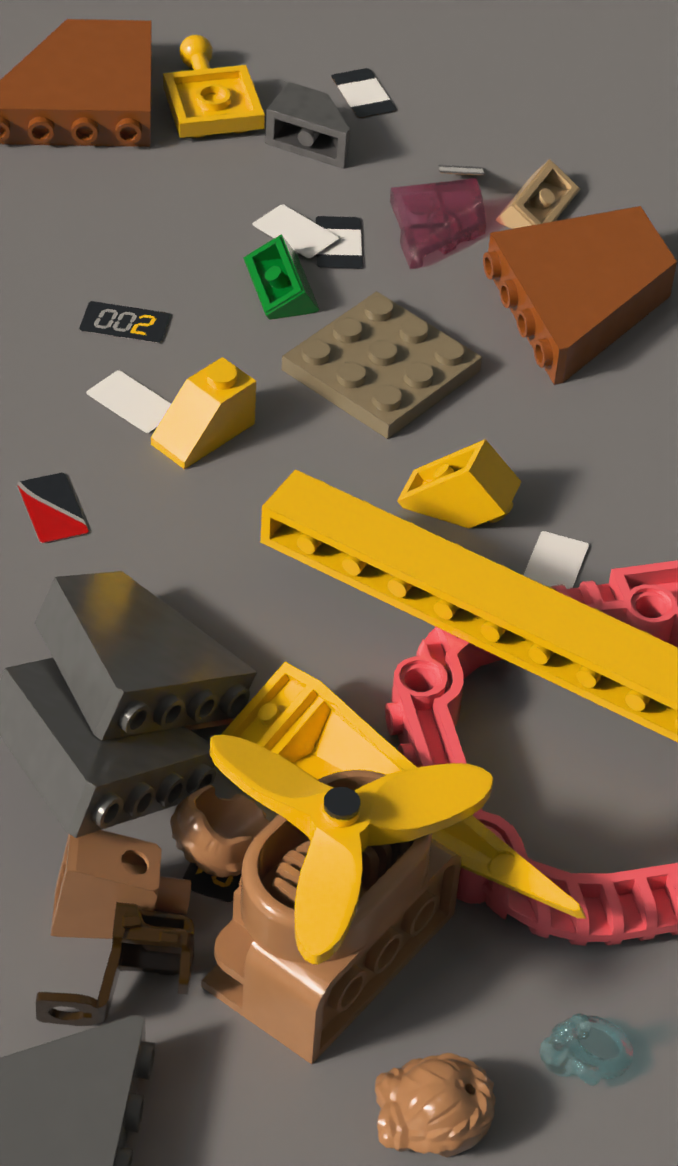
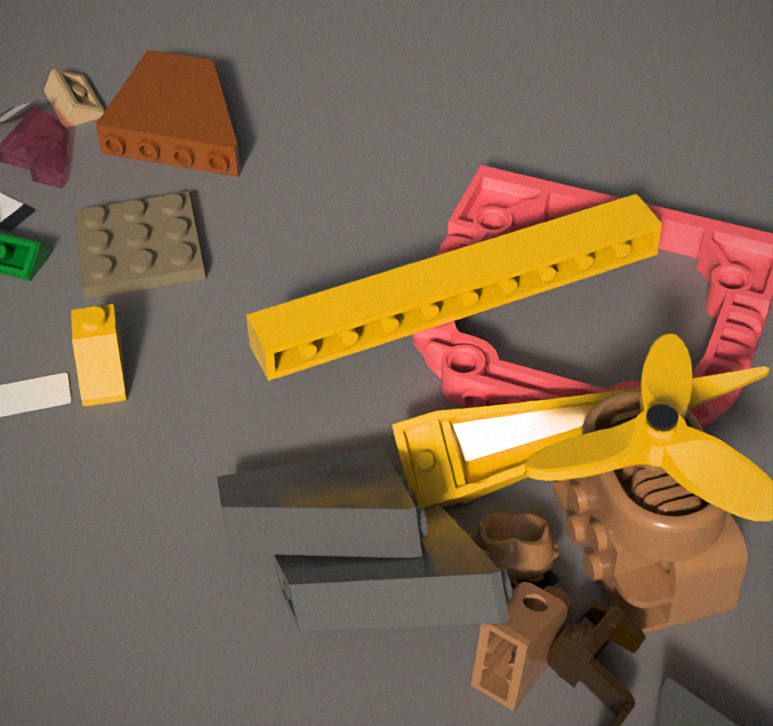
camera: 50 degrees left, 0 degrees up
(52, 507) = (89, 496): sticker -> none
(463, 487) = (298, 260): yellow slope -> none
(556, 560) = (390, 252): white sticker -> none

